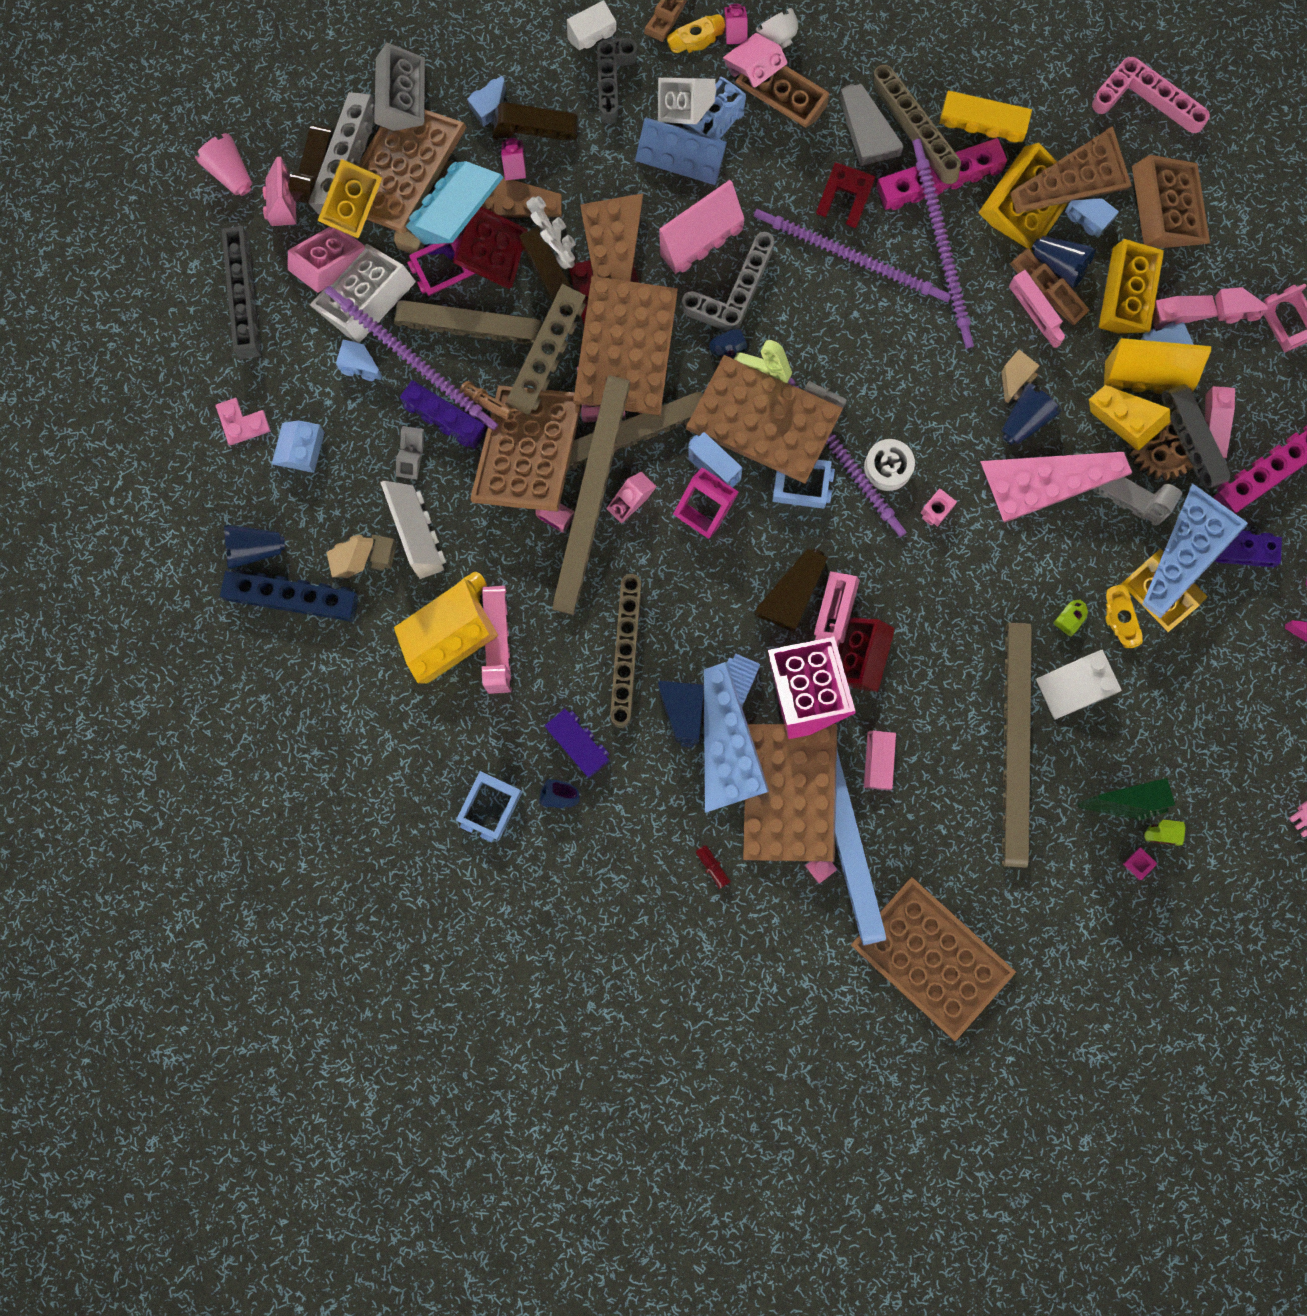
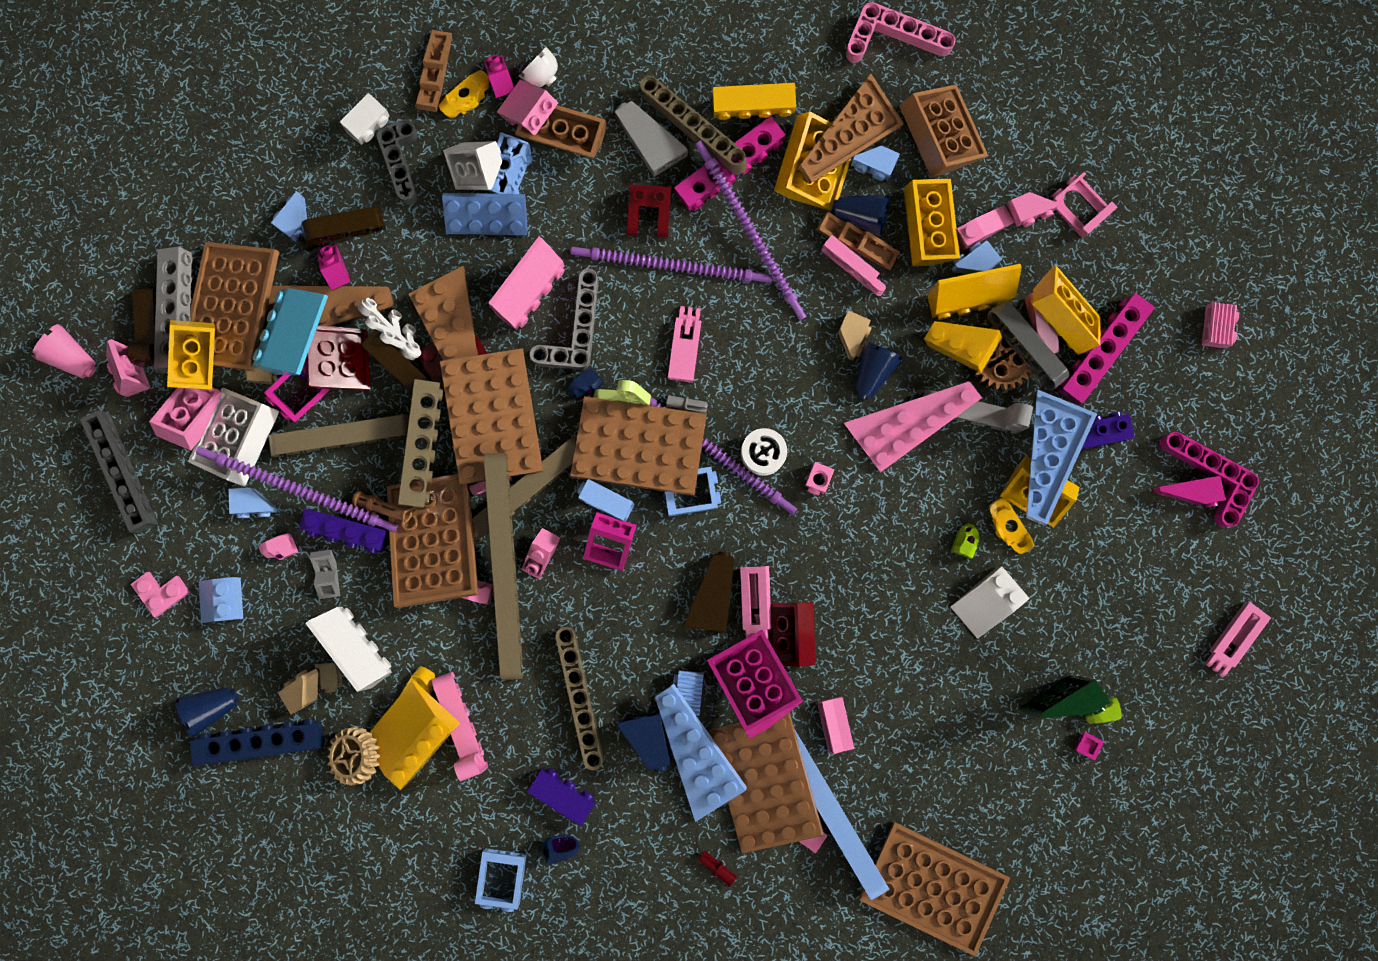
camera: 25 degrees left, 5 degrees up
(372, 412) = (279, 547): none -> bright pink rock
(385, 641) = (353, 756): none -> tan gear
(399, 88) = (204, 232): light grey slope -> none
(838, 341) = (685, 350): none -> bright pink hinge
(1017, 750) = (952, 673): dark tan beam -> none
(1246, 414) = (1067, 311): none -> yellow slope

